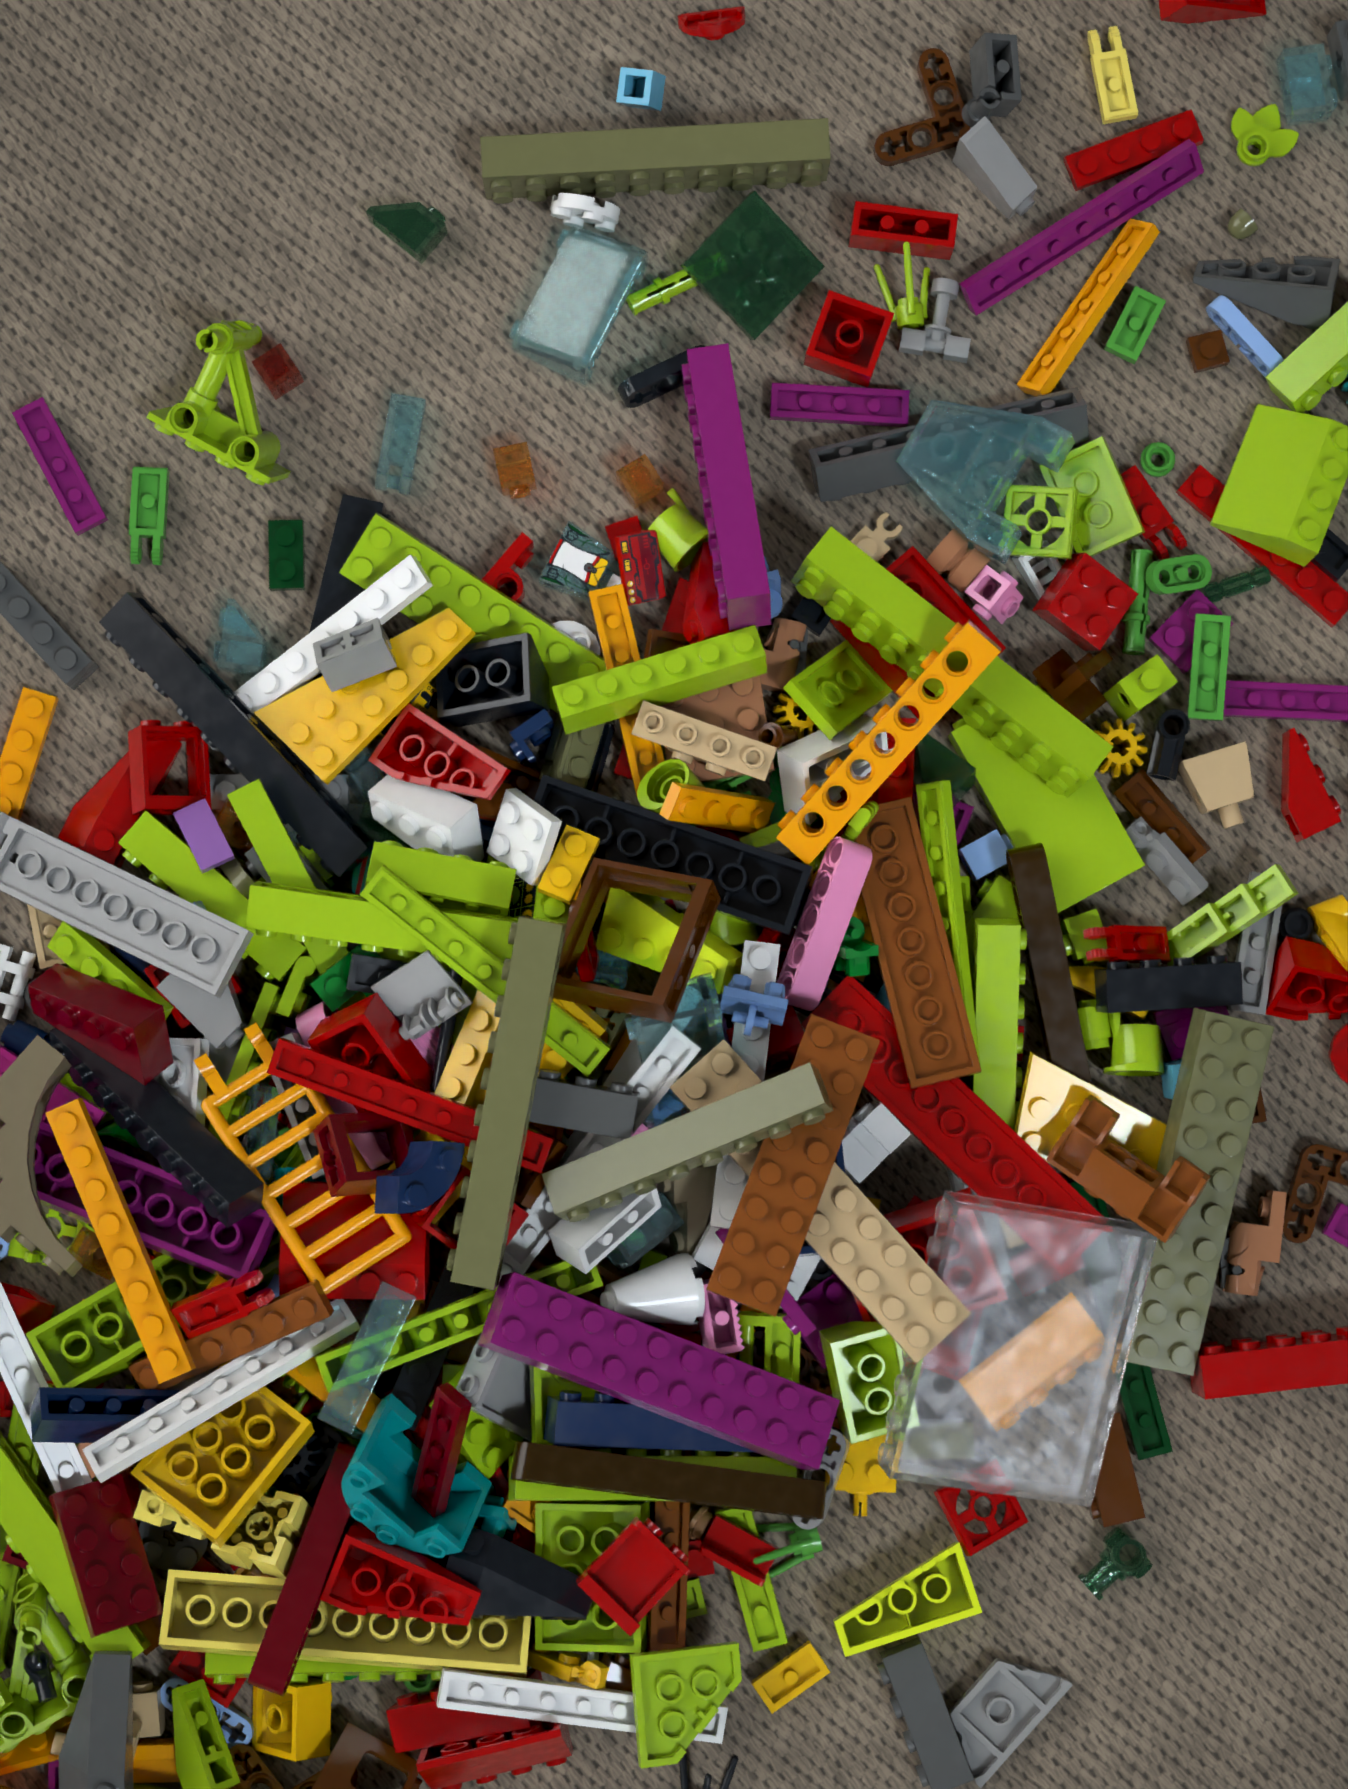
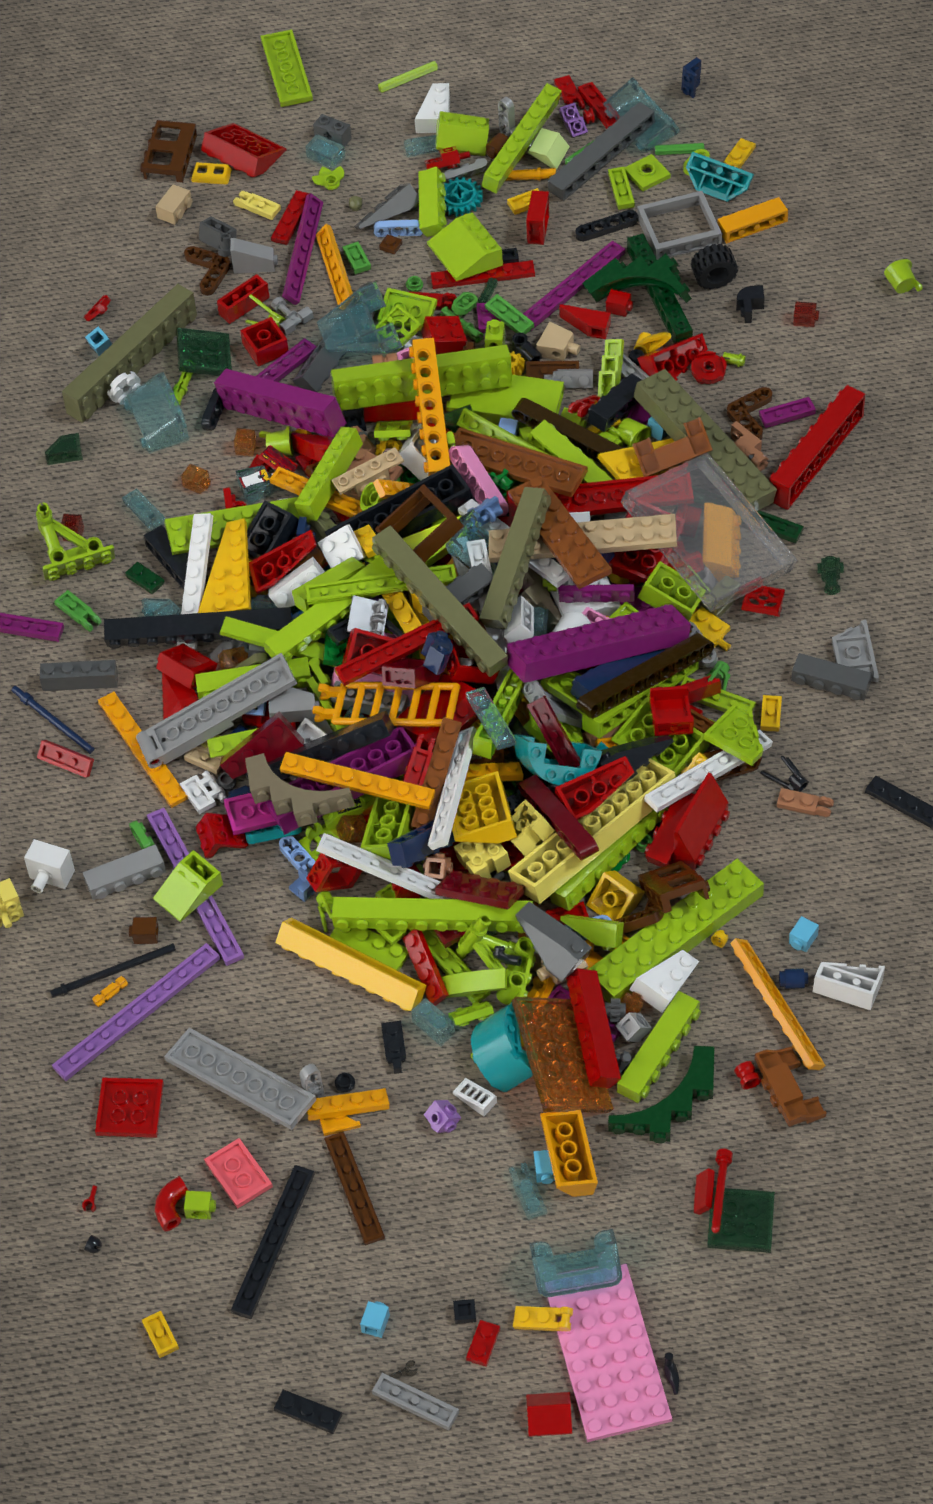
camera: 40 degrees left, 30 degrees down
(203, 835) = (227, 661): medium lavender slope -> none
(354, 655) = (211, 560): light grey hinge -> none
(916, 1602) = (781, 646): neon yellow wedge -> none
(1117, 1490) = (804, 552): reddish brown slope -> none

